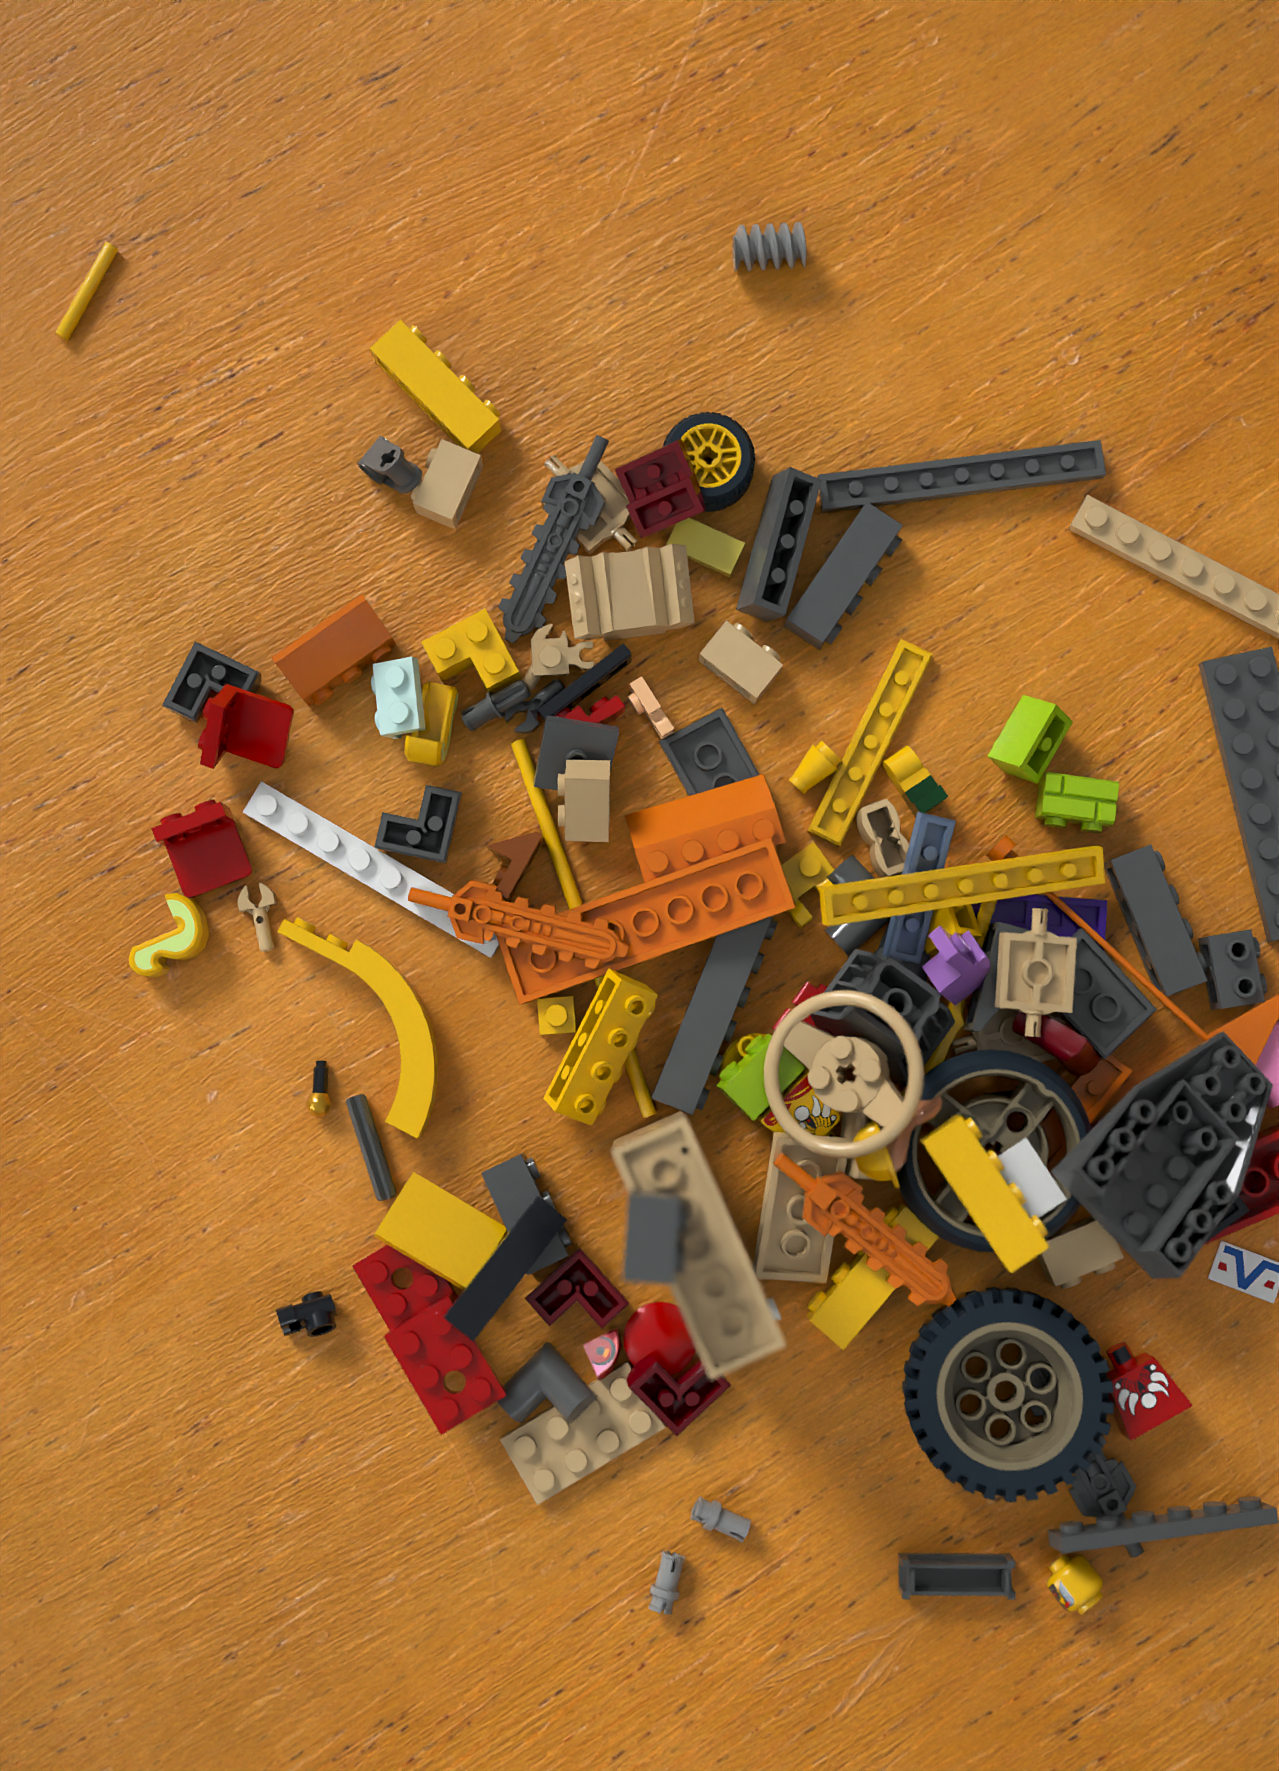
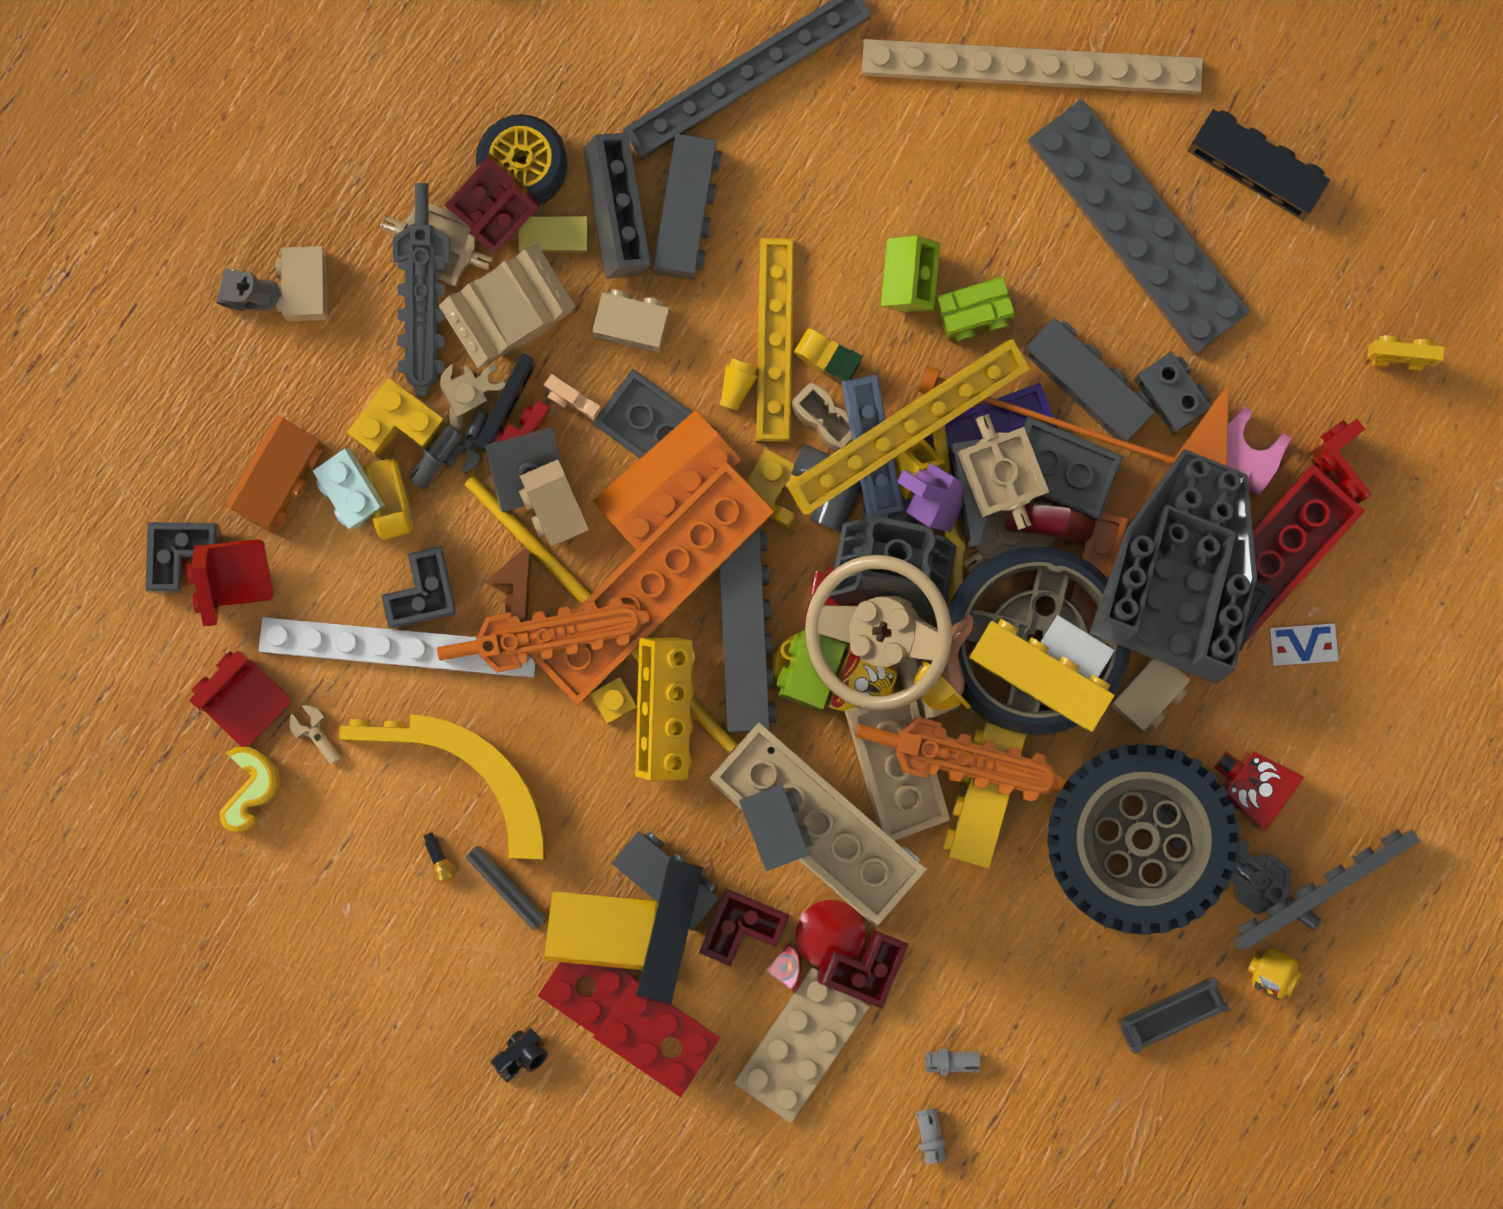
camera: 25 degrees left, 0 degrees up
(436, 388) = (254, 204): yellow brick -> none
(546, 1377) = (745, 1013): dark grey brick -> none

